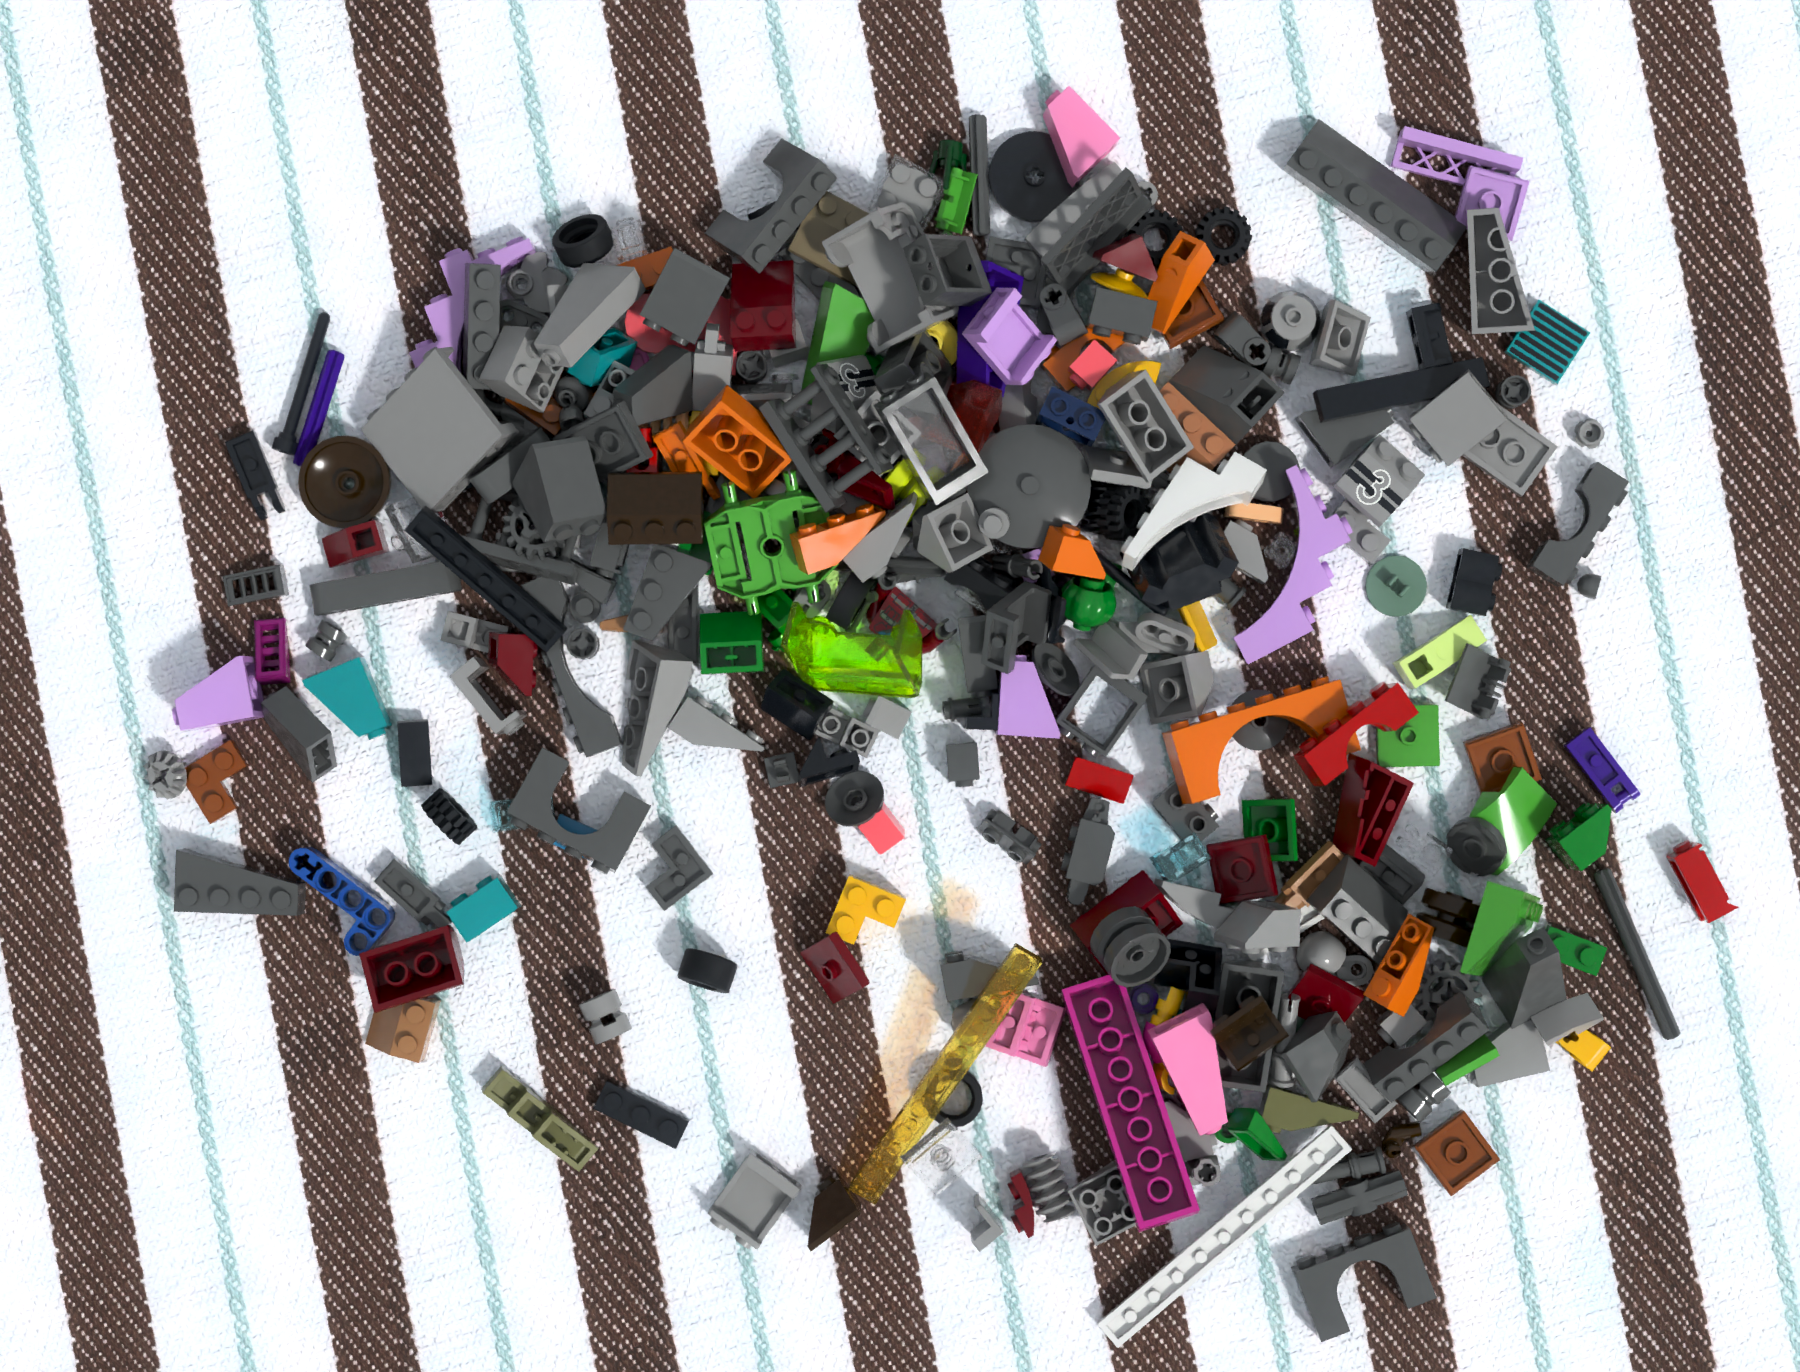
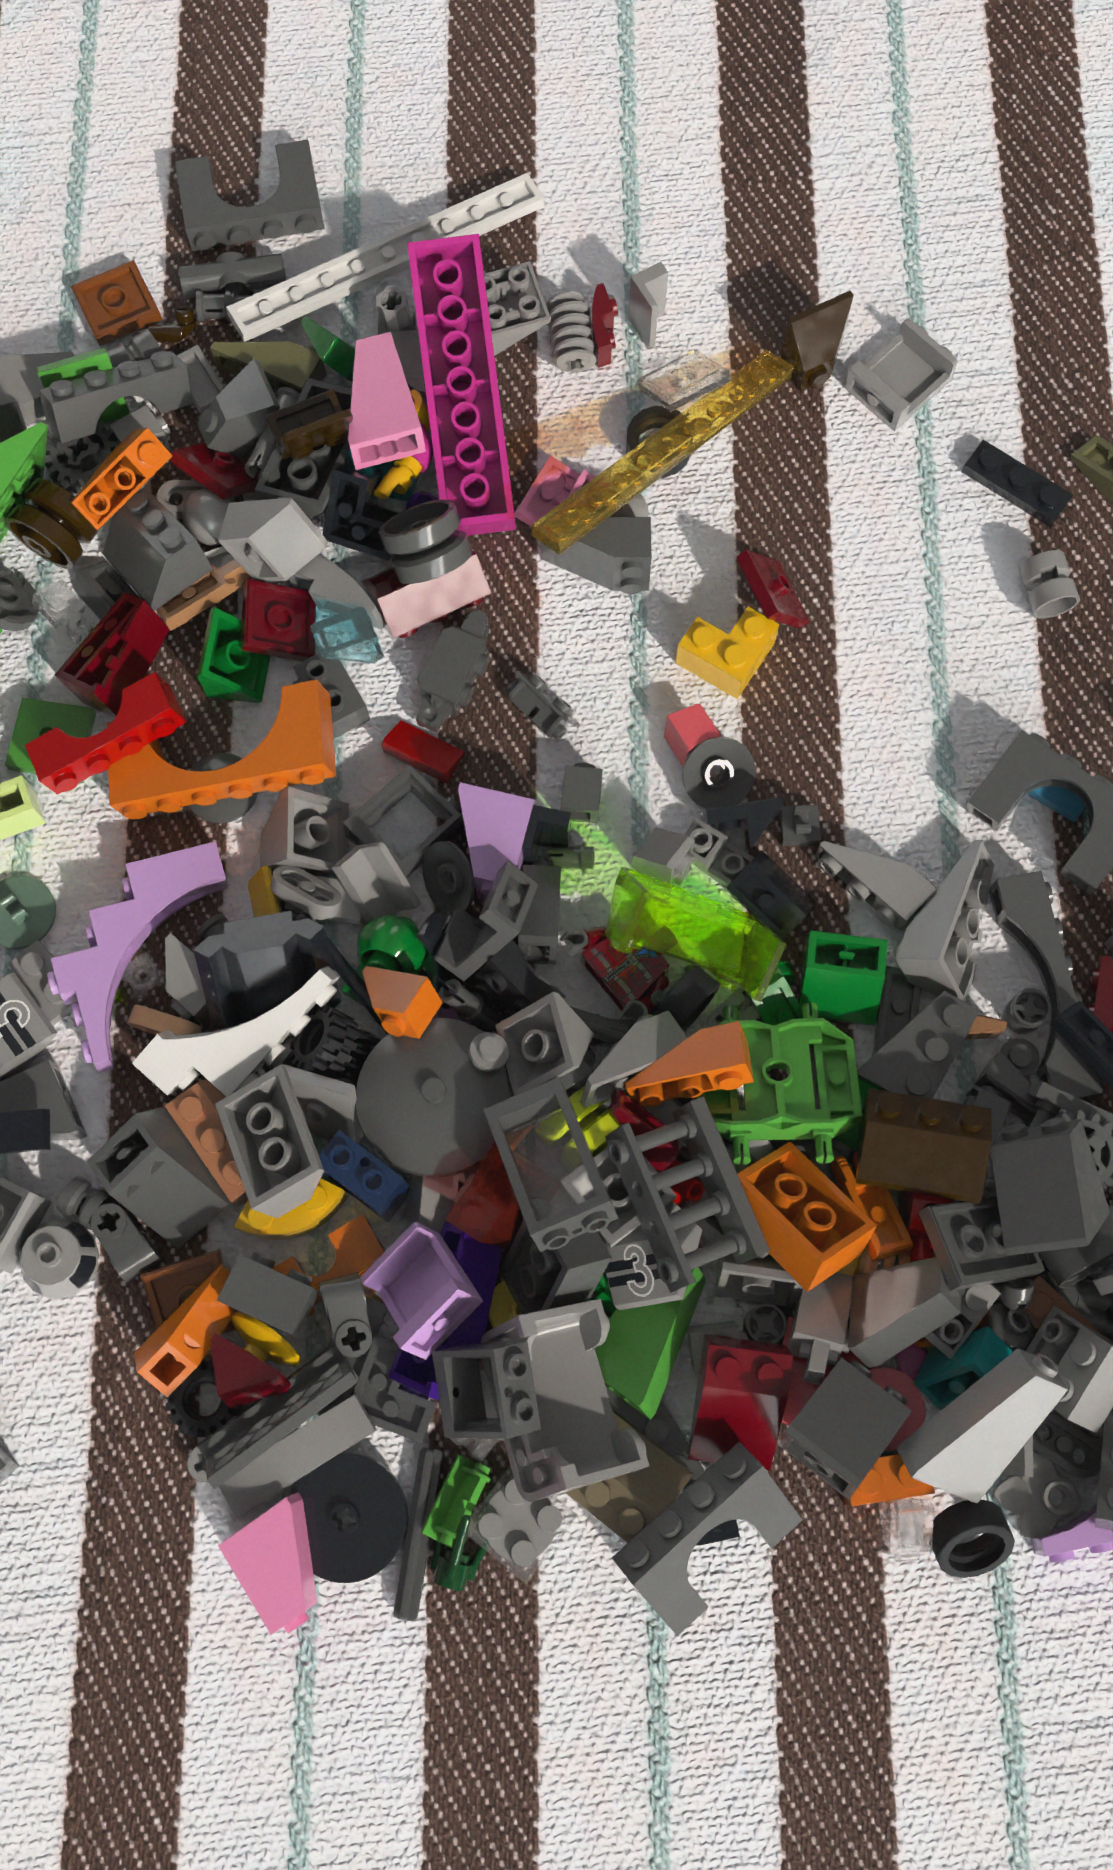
camera: 165 degrees left, 15 degrees down
(685, 871) = (934, 731): dark grey plate -> none
(707, 970) = (923, 611): black tyre -> none
(1091, 366) = (323, 1236): coral brick -> none
(1236, 223) = (92, 1392): black tyre -> none
(1276, 459) = (126, 1085): dark grey tile -> none

